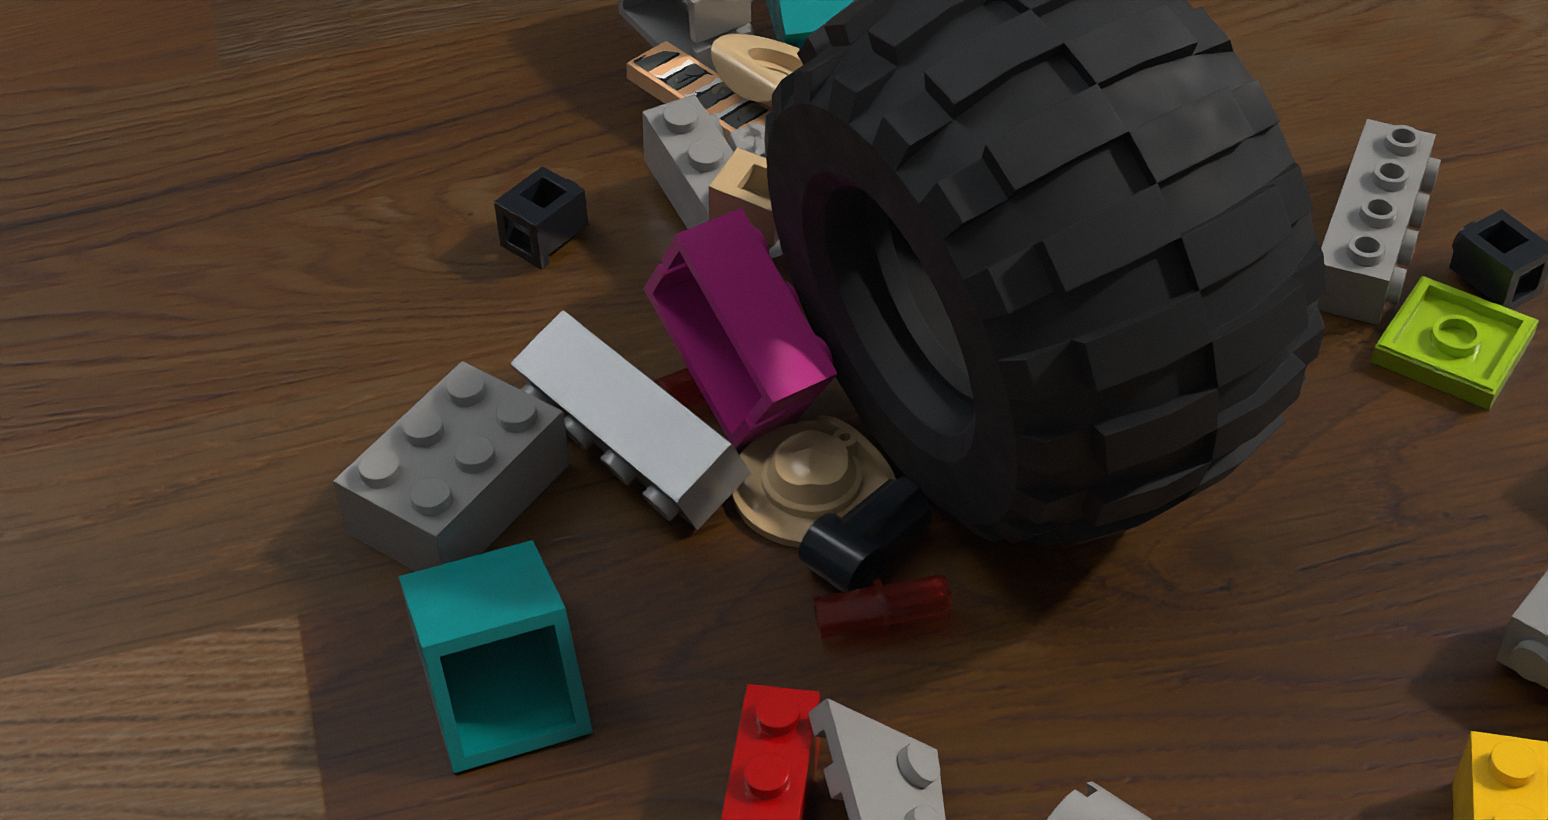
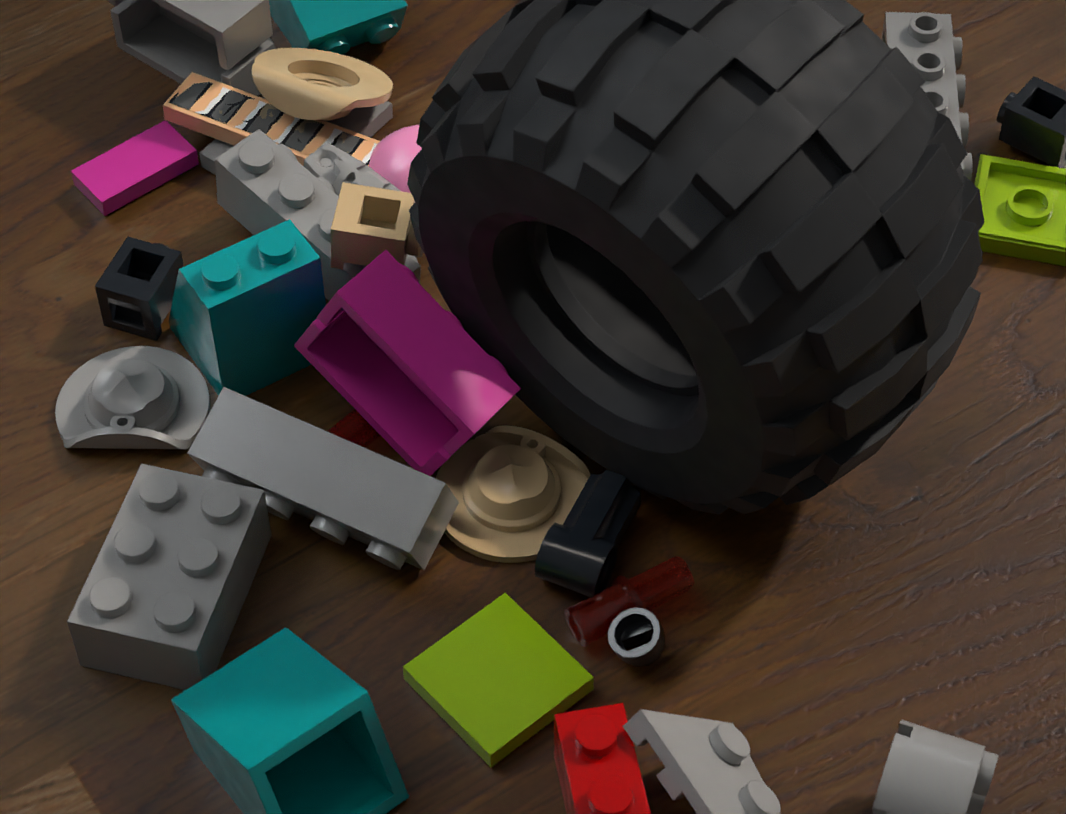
camera: 20 degrees left, 5 degrees up
(490, 312) = (133, 401): none -> light grey hat
(585, 116) = (135, 167): none -> dark pink tile
(611, 245) = (249, 308): none -> teal slope
(719, 642) = (498, 679): none -> lime tile
(872, 642) = (633, 629): none -> black hinge

